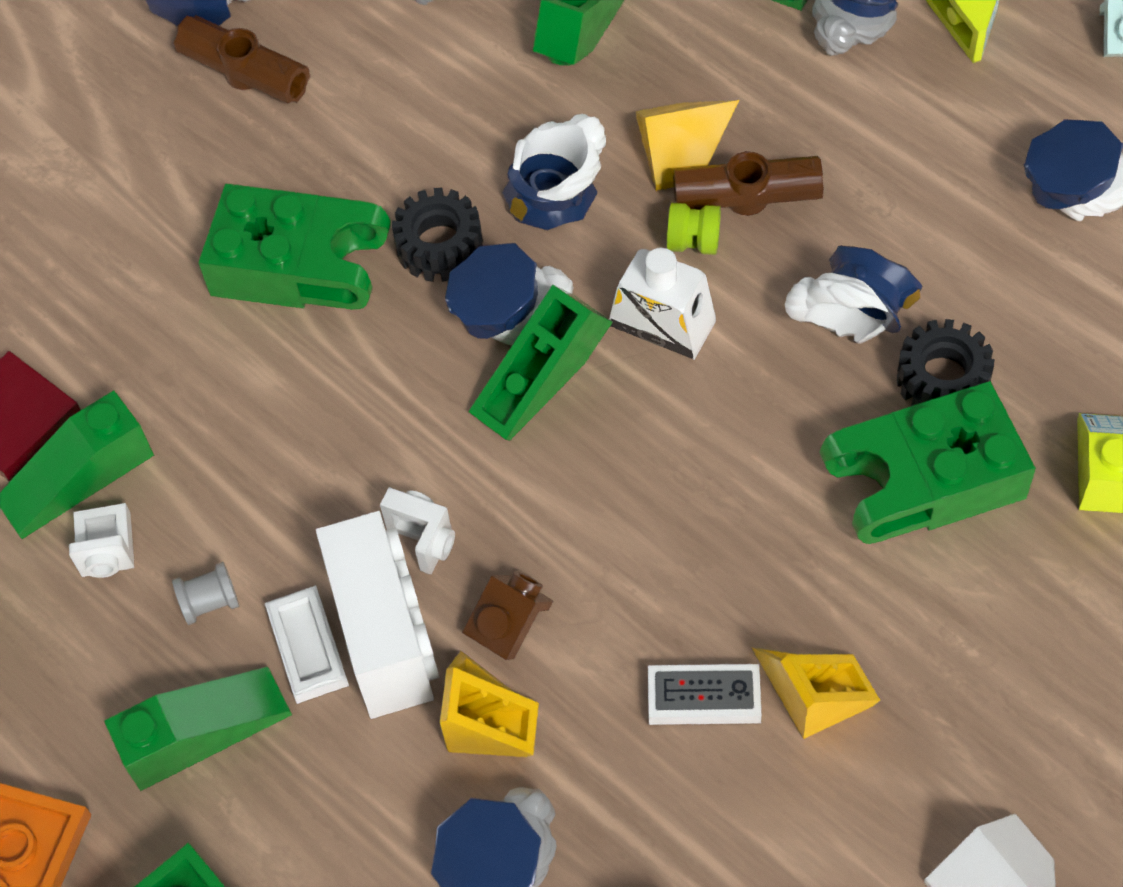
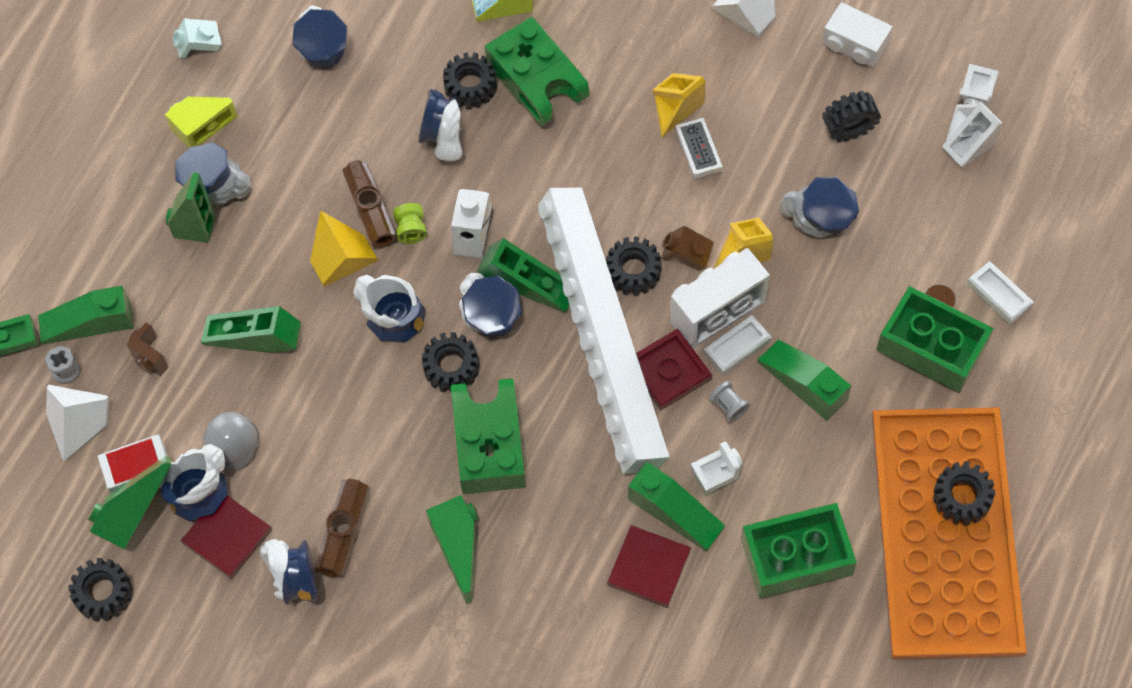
camera: 110 degrees left, 5 degrees up
(157, 182) = (456, 536): none -> green slope
(286, 526) = (671, 369): none -> dark red tile
(406, 435) = (602, 330): none -> white brick
(421, 520) = (652, 295): white bracket -> none
(499, 495) = (636, 250): none -> black tyre

